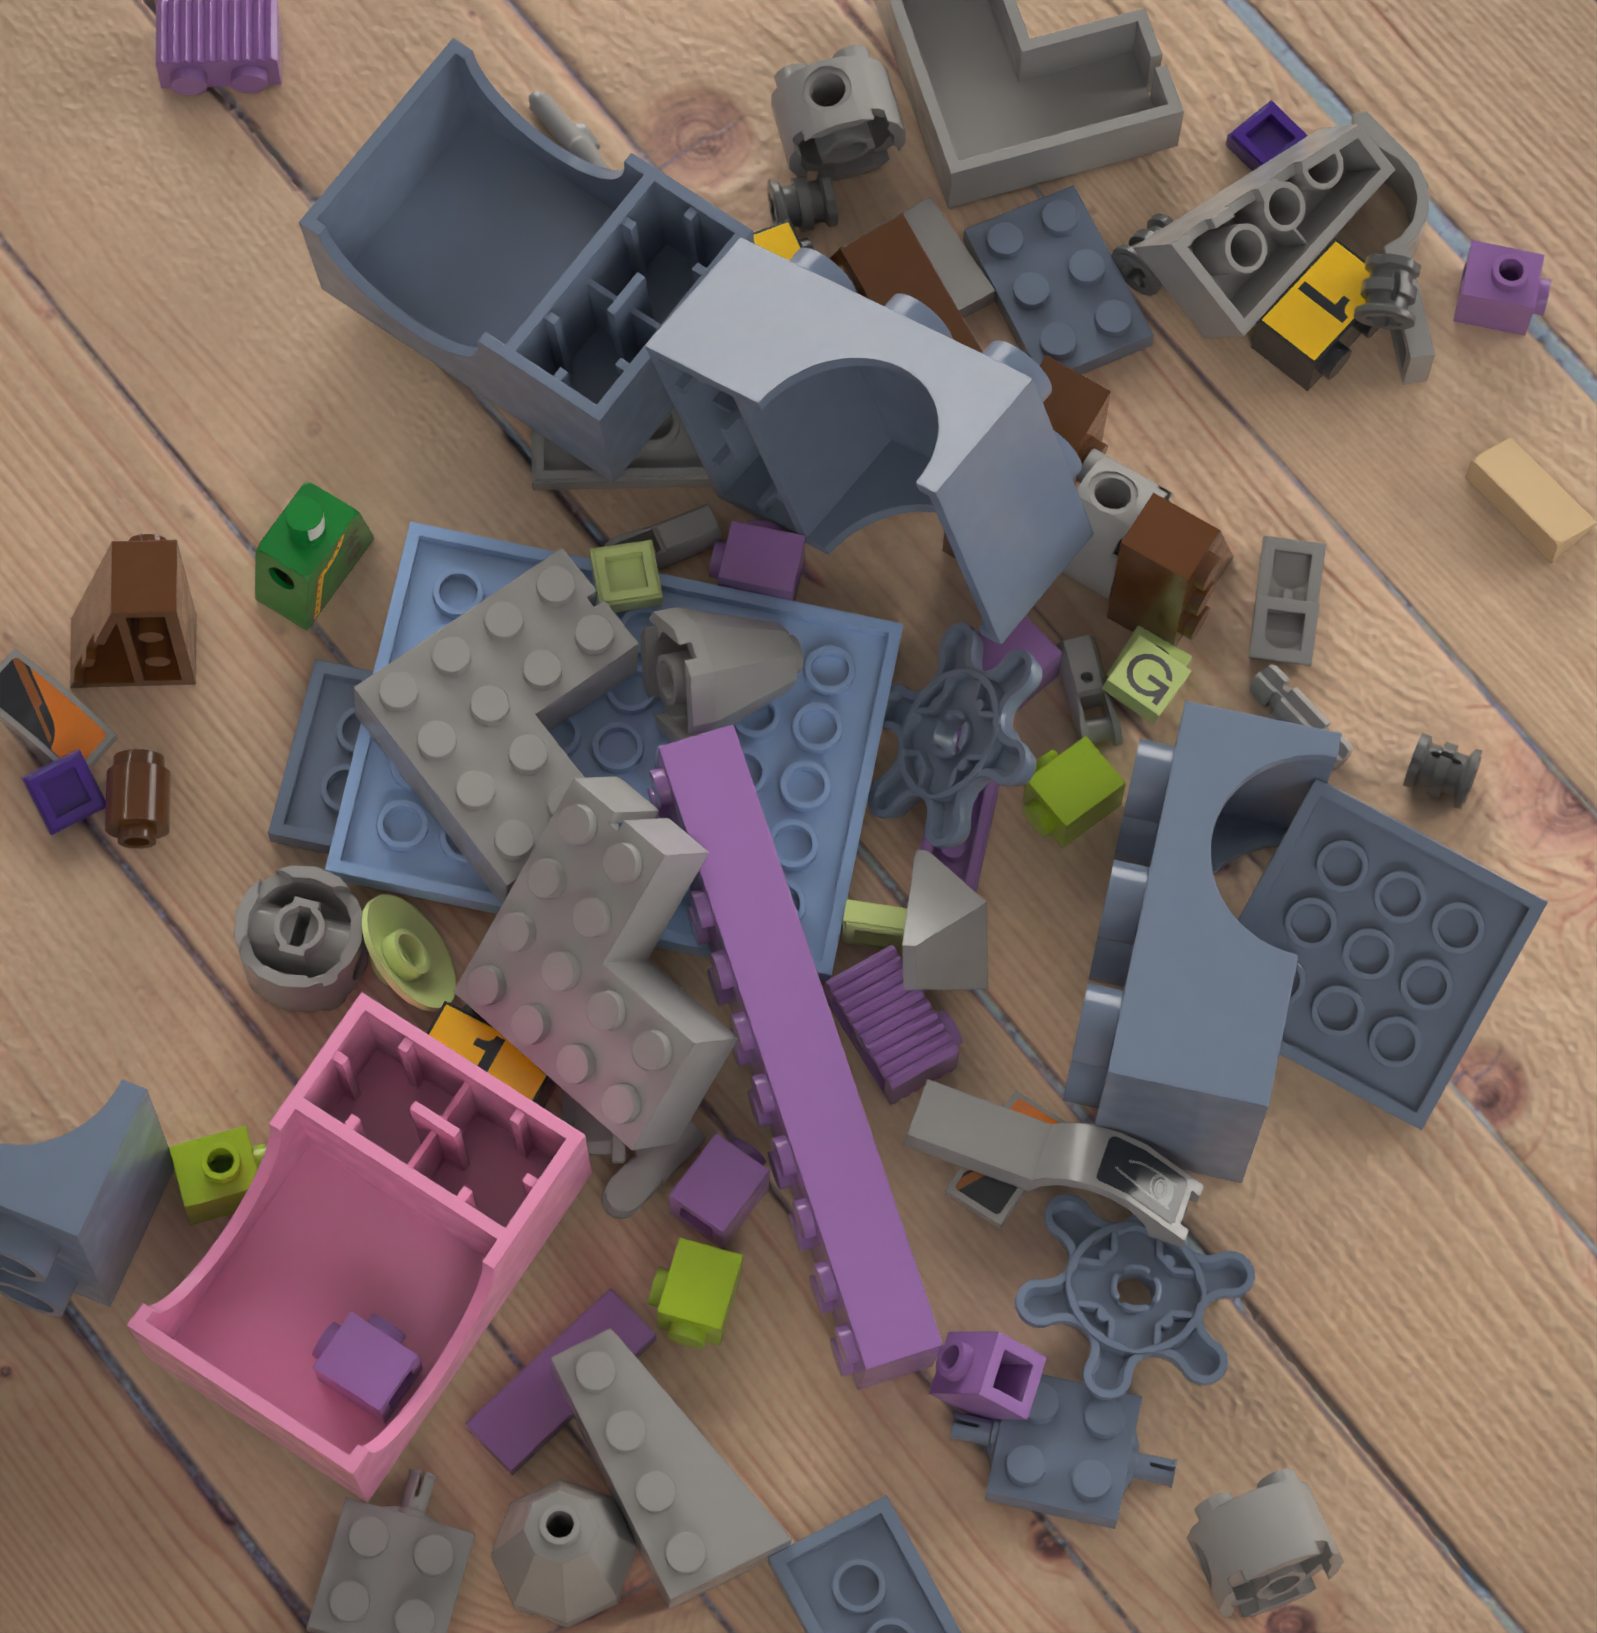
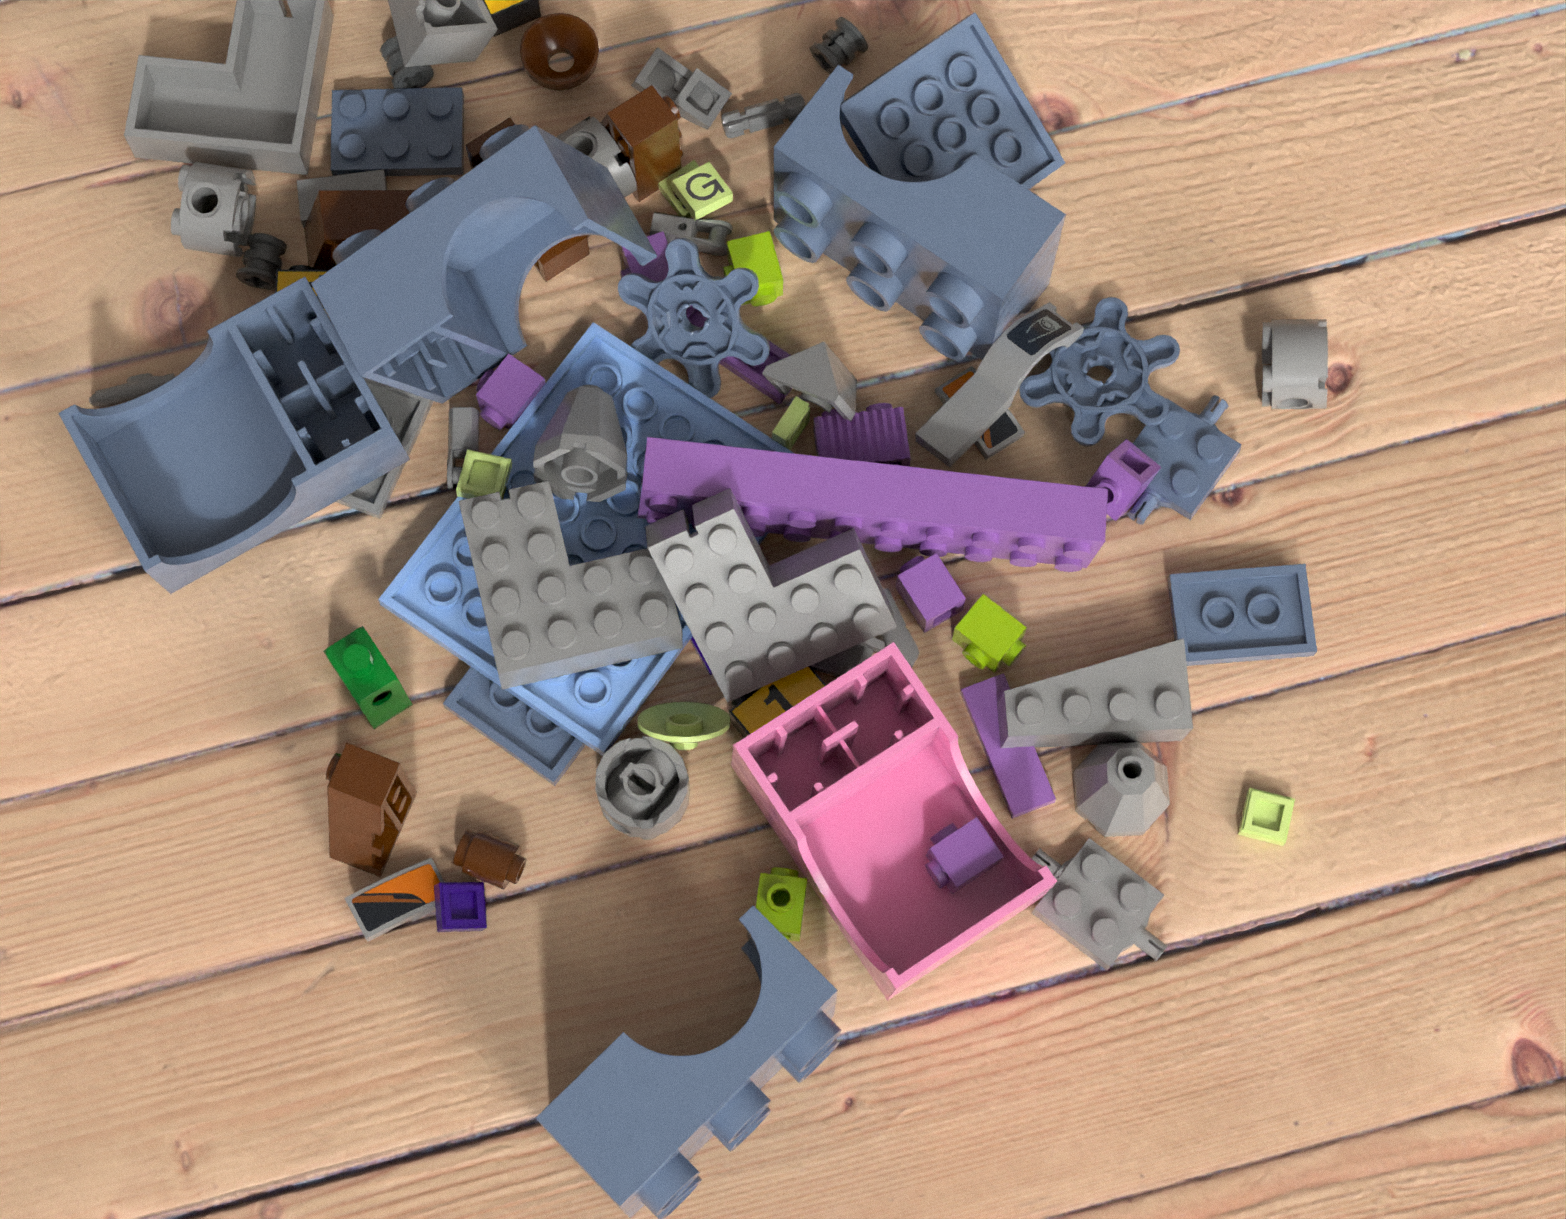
camera: 65 degrees left, 5 degrees up
(1263, 403) = (556, 35): none -> reddish brown piece

